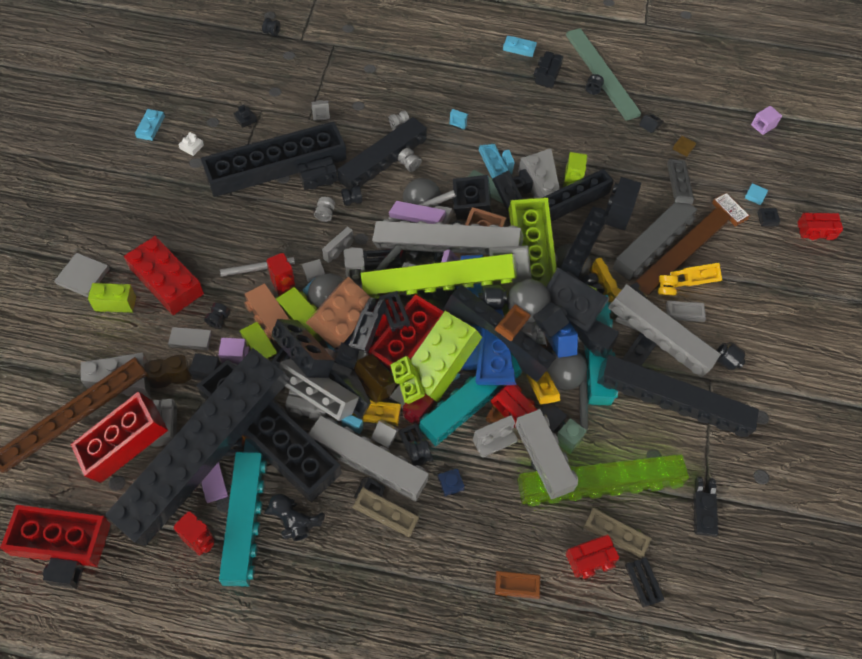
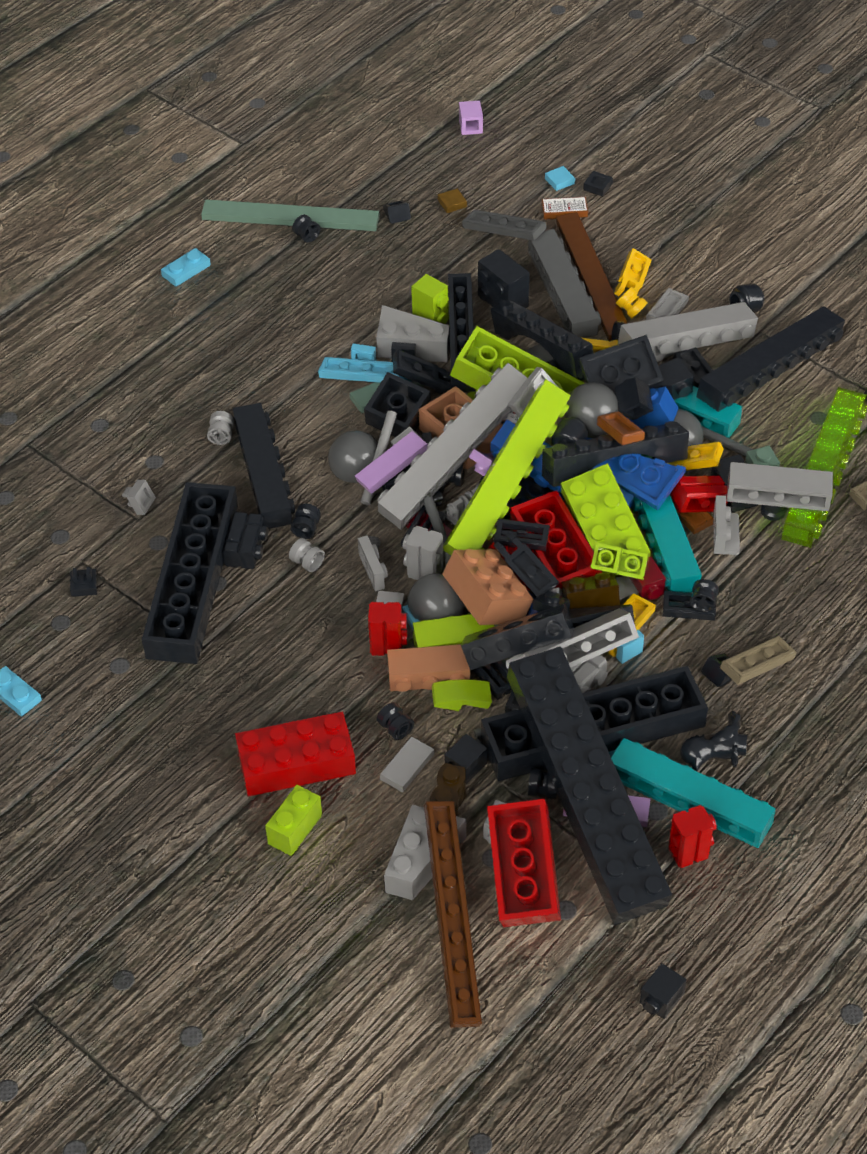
camera: 55 degrees left, 10 degrees down
(55, 534) = (611, 978): red brick -> none
(81, 273) = (225, 848): light grey tile -> none
(191, 144) = (86, 656): white tile -> none
(233, 350) = (459, 720): lavender brick -> none
(249, 268) = (343, 659): light grey bar -> none
(369, 458) = (689, 644): light grey brick -> none
(384, 433) = (661, 623): light grey tile -> none
(410, 160) = (296, 443): light grey wheel -> none
(451, 482) = (752, 593): dark blue plate -> none
(458, 119) = (262, 371): medium azure tile -> none
(548, 69) = (250, 257): black brick -> none
(820, 225) = (637, 151): red brick -> none

